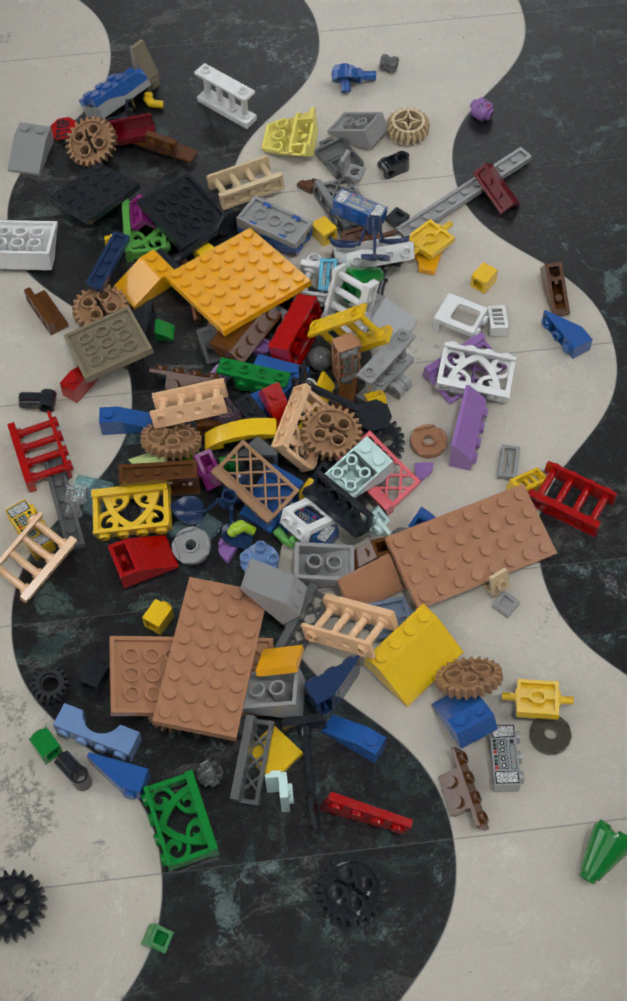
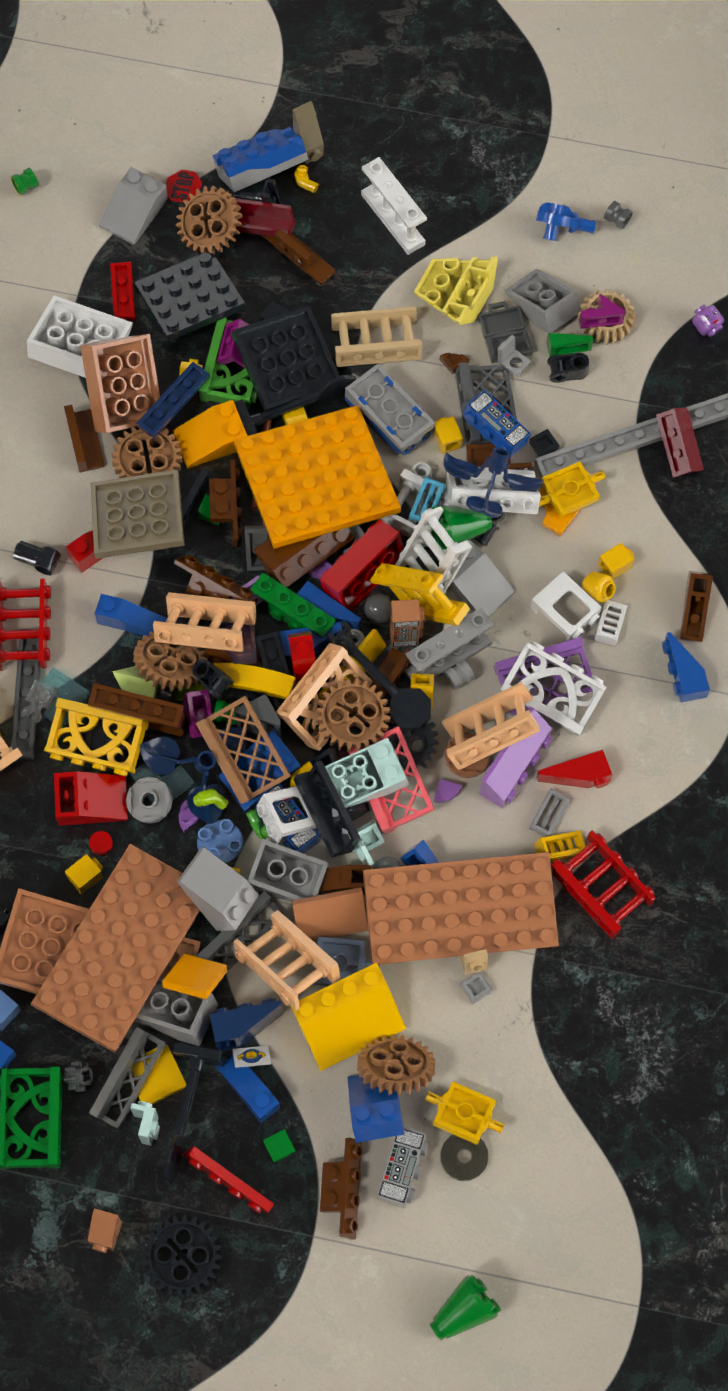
camera: 15 degrees right, 10 degrees up
(40, 204) = (123, 291): none -> red tile
(61, 258) = (120, 381): none -> nougat slope
(163, 590) = (101, 843): none -> red tile
(172, 320) = (223, 502): none -> reddish brown bracket
(210, 437) = (211, 677): none -> black piece
(277, 889) = (104, 1230): none -> nougat slope
(347, 712) = (251, 1056): none -> white sticker
(387, 148) = (568, 343): none -> green slope
(397, 775) = (279, 1146): none -> green tile
(407, 120) = (606, 314): none -> magenta slope
(448, 414) = (496, 738): none -> light nougat fence
(479, 295) = (599, 586): none -> yellow head
(519, 426) = (583, 772): none -> red slope

